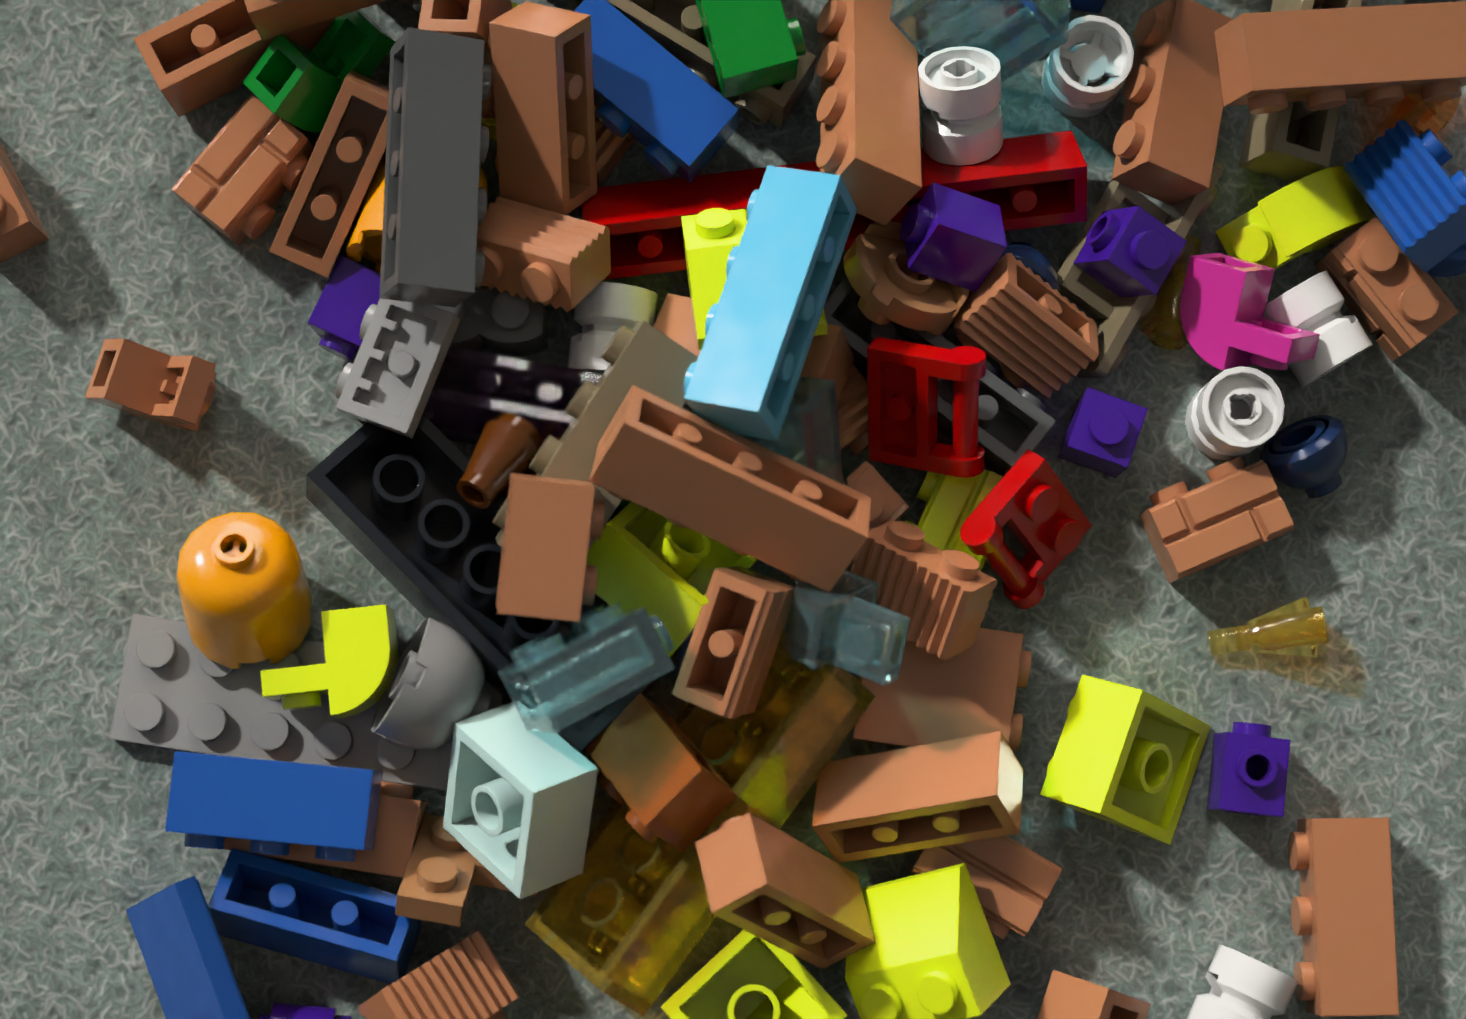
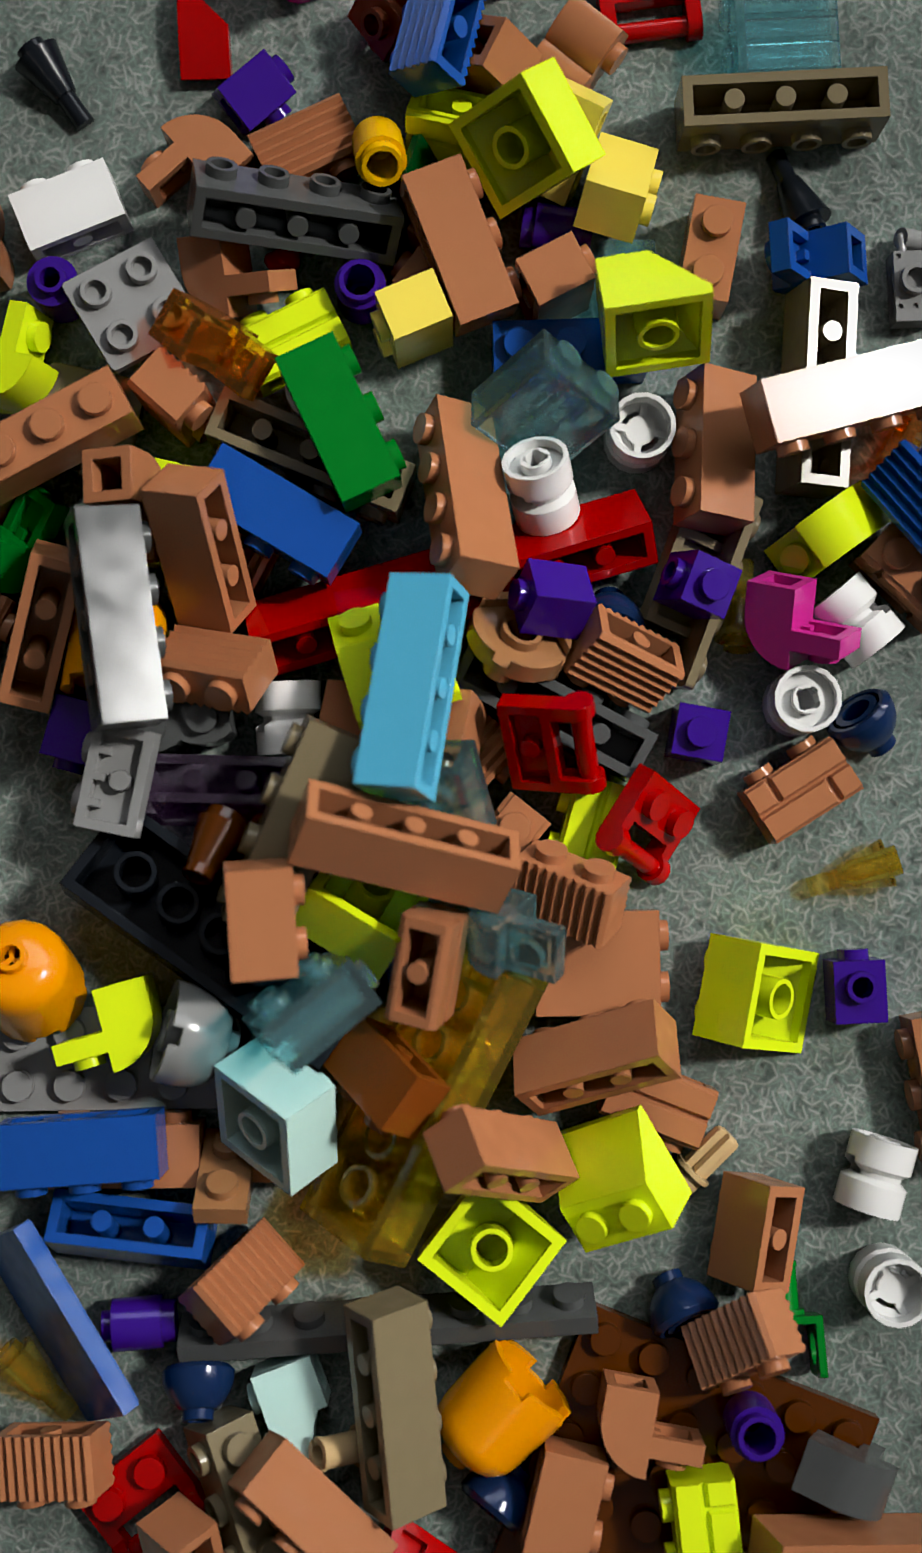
camera: 10 degrees left, 5 degrees up
(1034, 952) = (711, 1154): none -> tan axle

